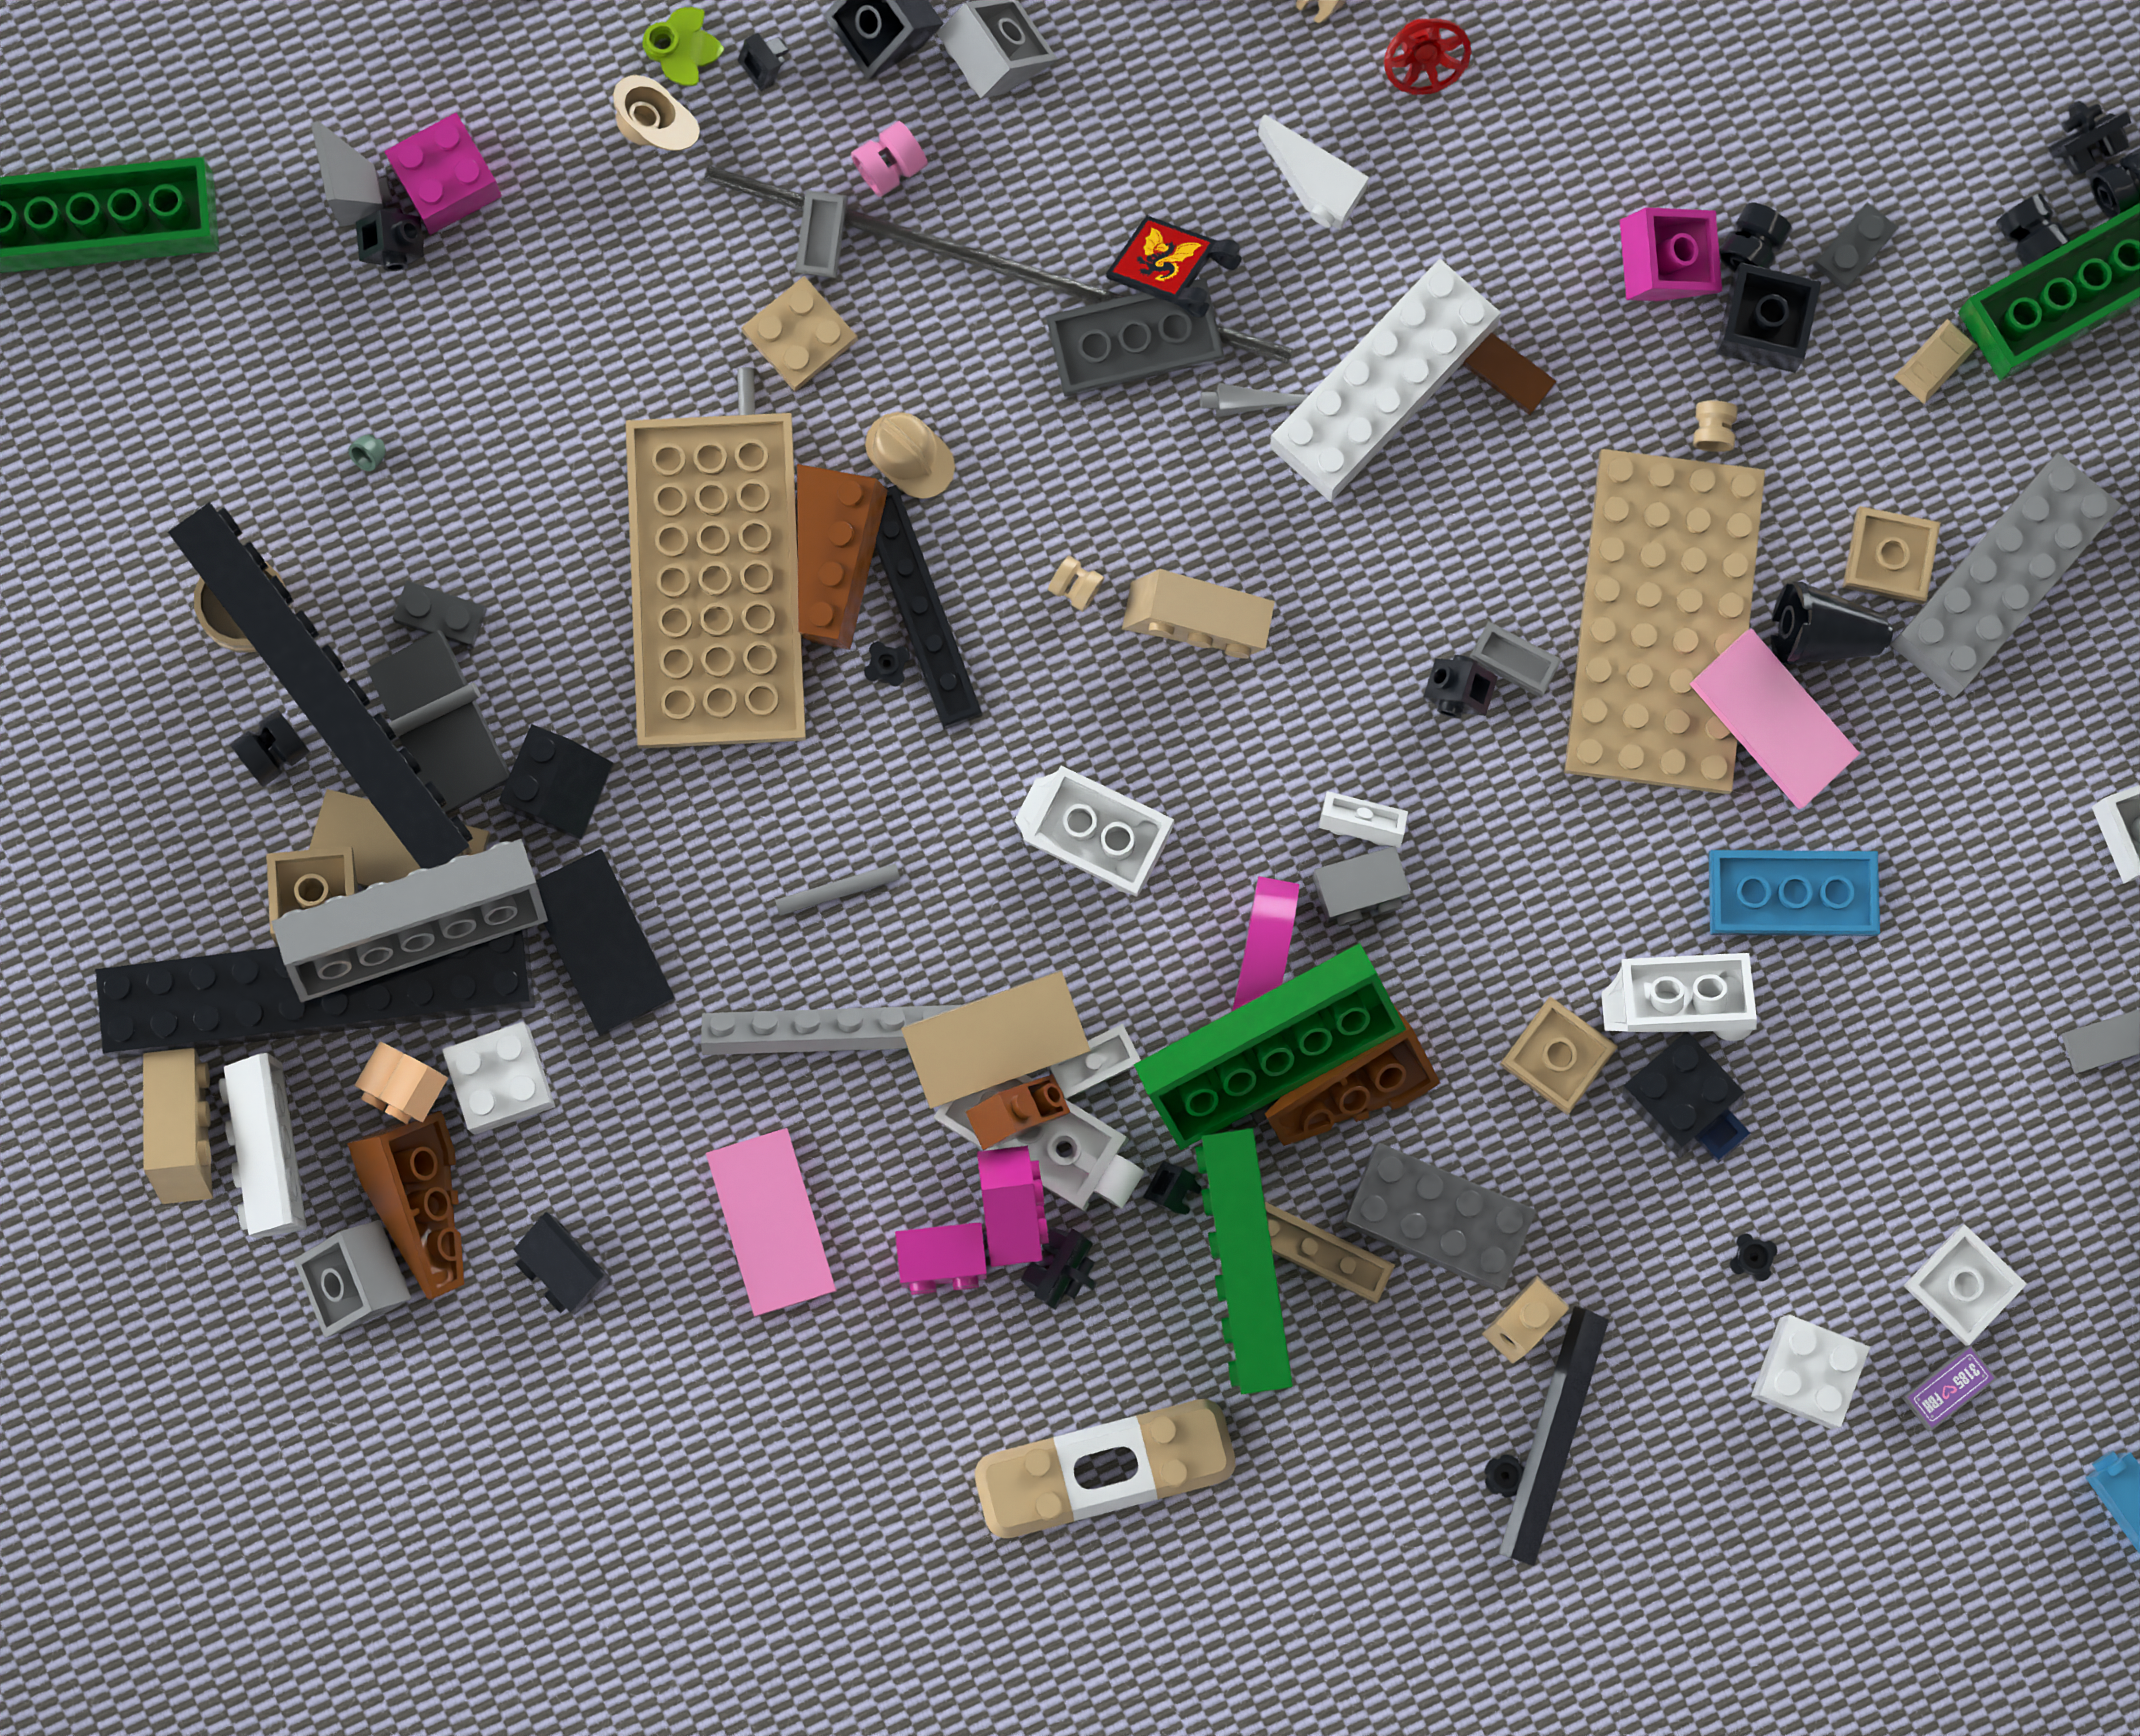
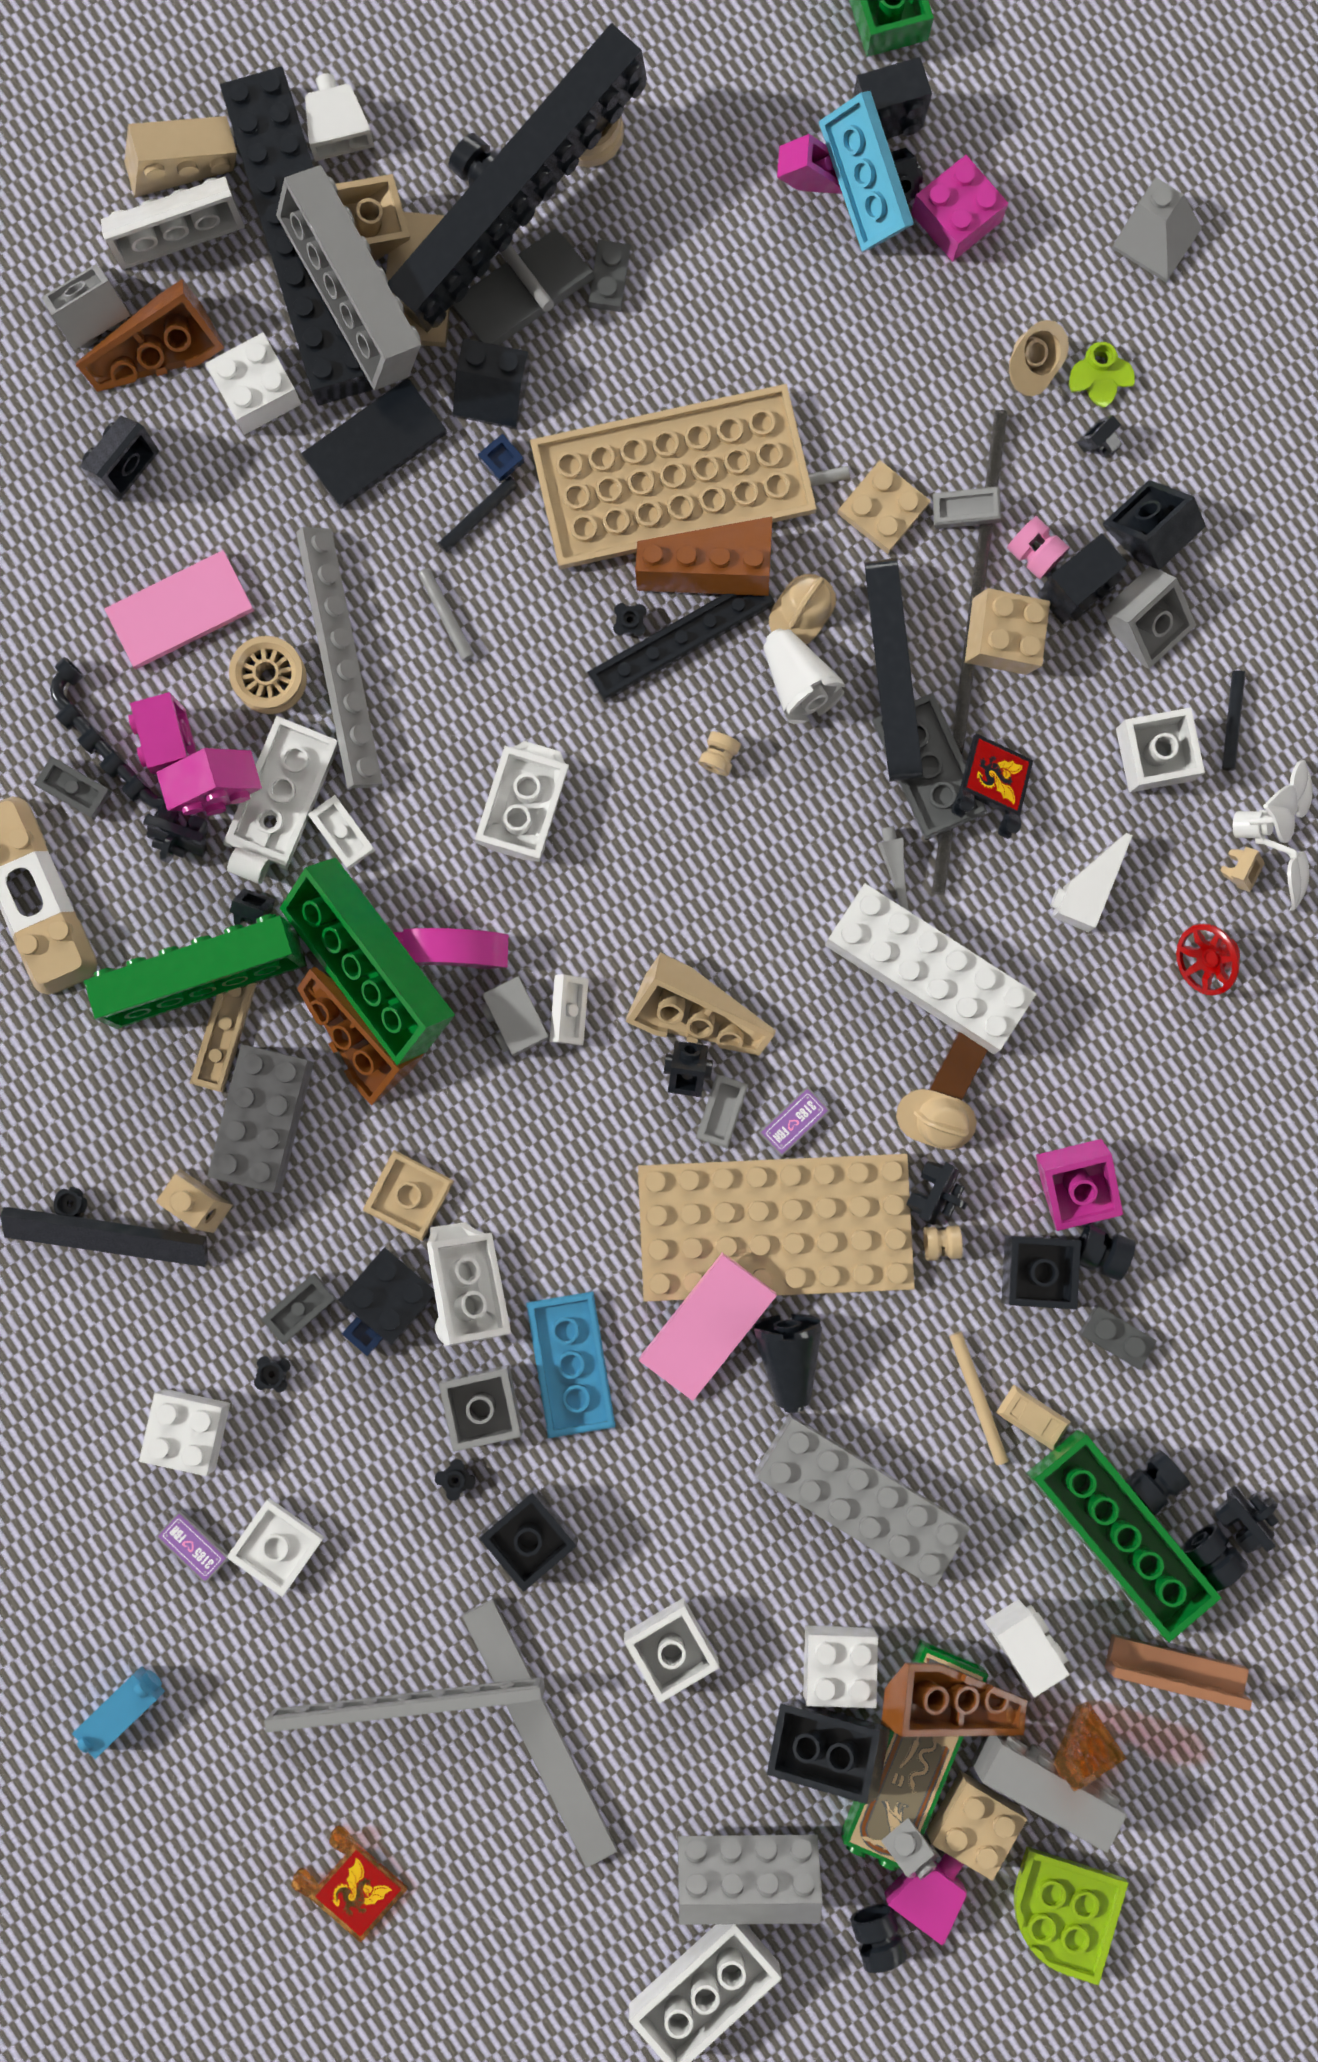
camera: 80 degrees right, 5 degrees up
(168, 918) = (335, 120): none -> white torso
(296, 229) = (899, 94): none -> black brick
(348, 178) = (938, 131): light grey slope -> none
(353, 339) = (807, 166): none -> dark pink slope
(367, 452) = (727, 197): sand green hinge -> none
(385, 273) = (866, 171): none -> medium azure plate
(400, 1083) = (234, 309): light nougat brick -> none
(652, 786) = (501, 458): none -> dark blue plate
(716, 828) = (478, 514): none -> black bar
(844, 1102) = (262, 646): none -> tan wheel
(921, 1357) = (93, 740): none -> black bar
(942, 112) = (1083, 580): none -> black brick
(979, 1391) = (72, 787): none -> dark grey plate
(988, 213) = (1007, 631): none -> tan brick
(995, 1039) = (340, 749): tan tile -> none
(997, 469) = (800, 677): none -> white cone
(1011, 355) = (893, 670): none -> black beam
(1017, 1111) = (286, 776): dark orange slope -> none
(1165, 63) = (1160, 750): none -> white brick
(1198, 613) = (709, 854): tan wedge -> none
(1377, 677) = (688, 1005): none -> tan wedge
(1541, 575) = (794, 1121): none -> medium lavender tile
(1564, 408) = (936, 1119): none -> tan piece
(1668, 434) = (943, 1179): none -> black hips
(1679, 1210) = (298, 1308): none -> dark grey plate
(1833, 1003) = (481, 1408): none -> light grey brick
(1891, 555) = (863, 1403): tan tile -> none
(1904, 419) = (978, 1398): none -> tan bar
(1911, 1066) = (465, 1480): none -> black plate
(1998, 972) = (528, 1539): none -> black brick

